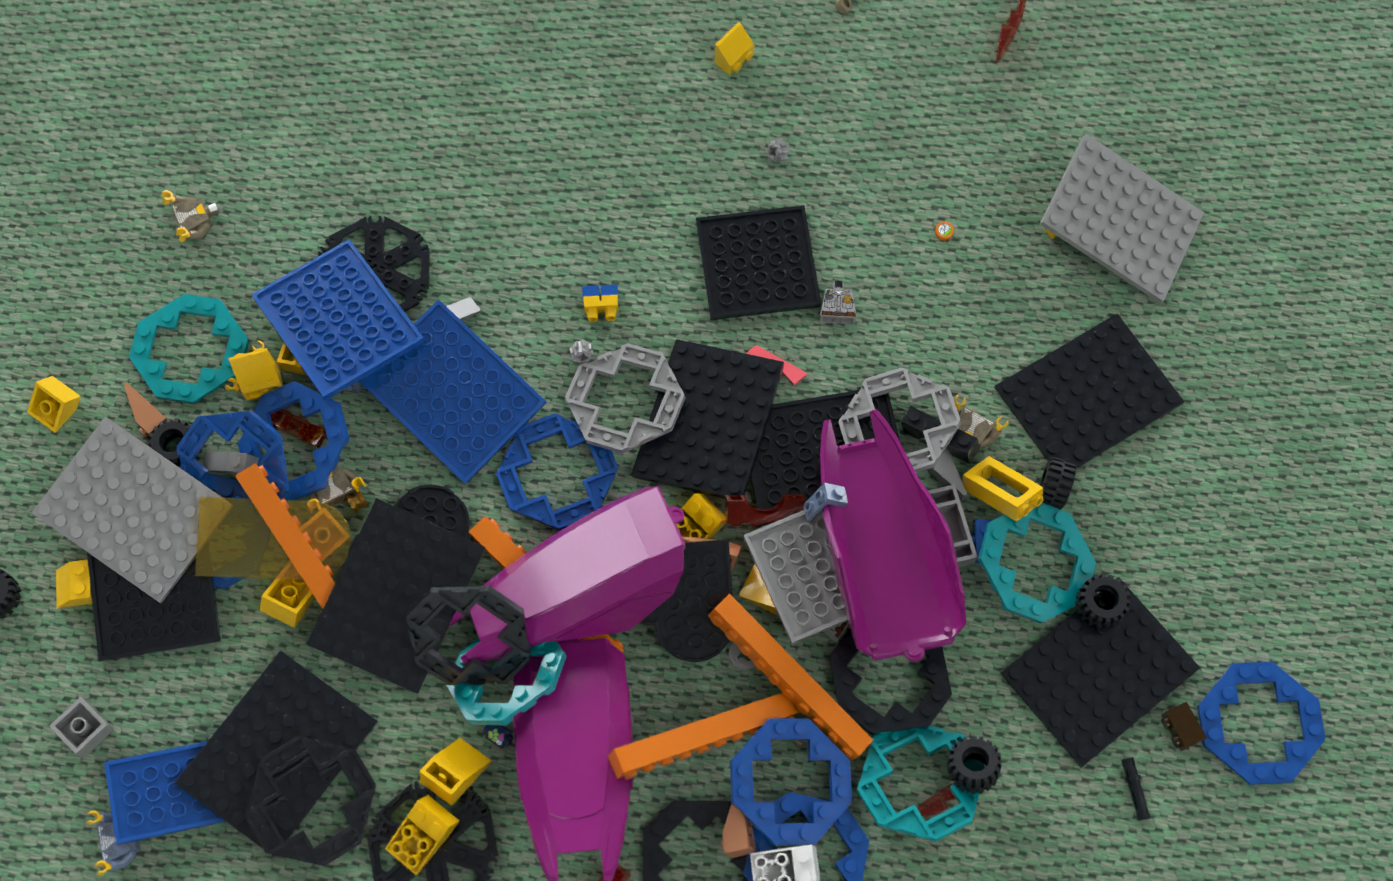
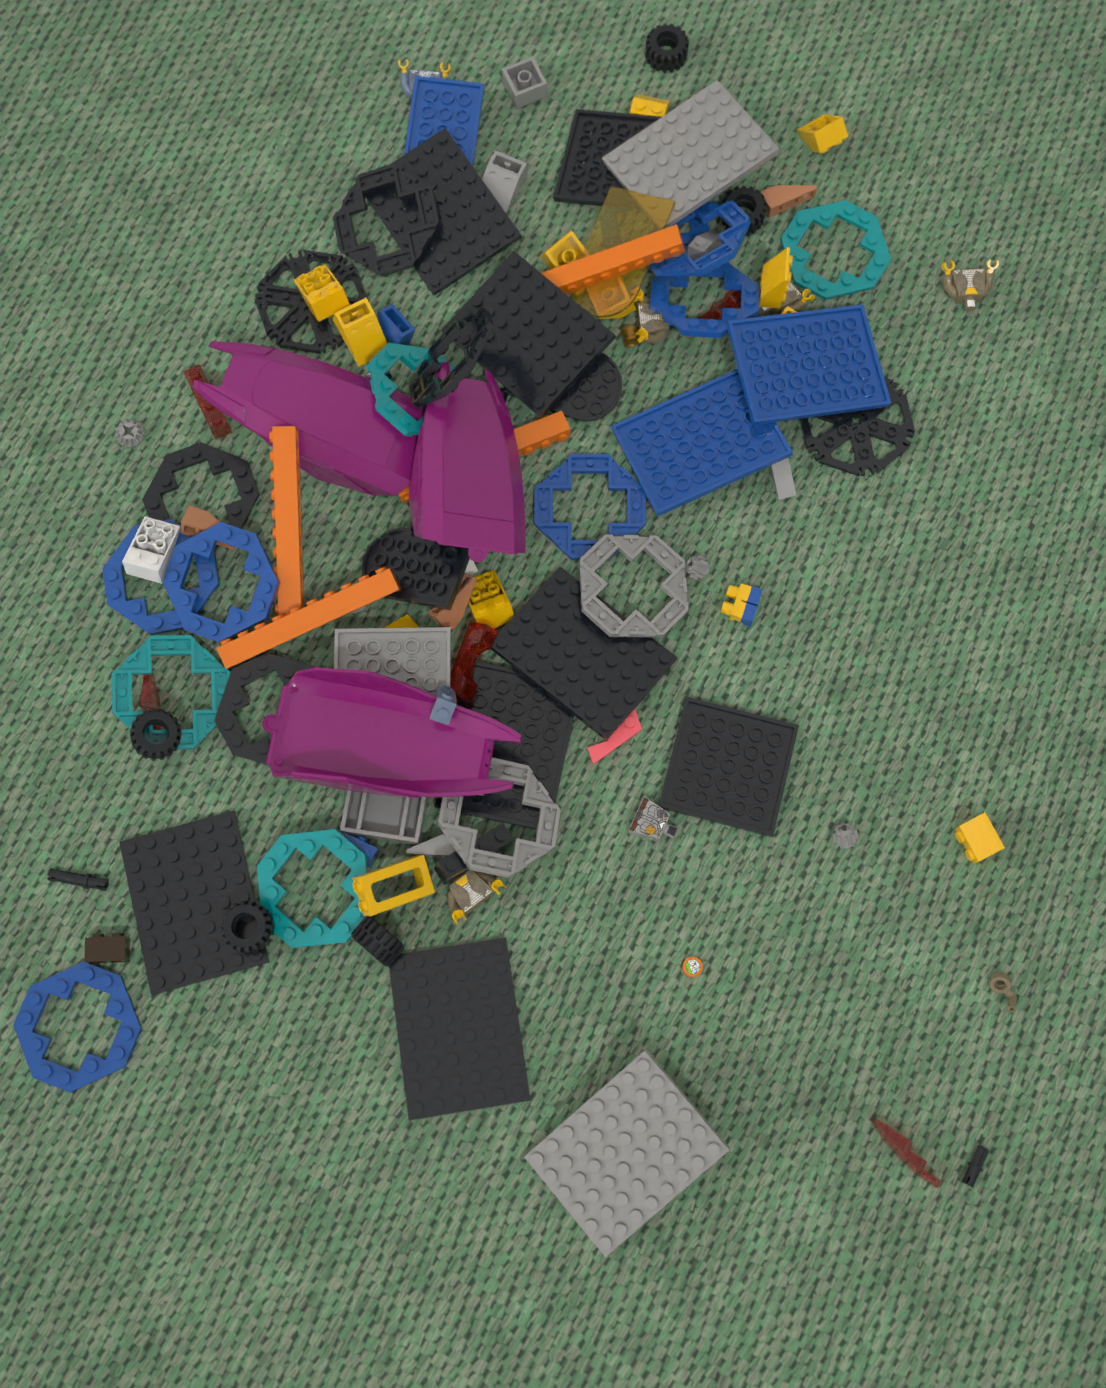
camera: 115 degrees right, 5 degrees up
(213, 699) = (504, 178): none -> light grey slope
(434, 737) = (395, 326): none -> blue brick

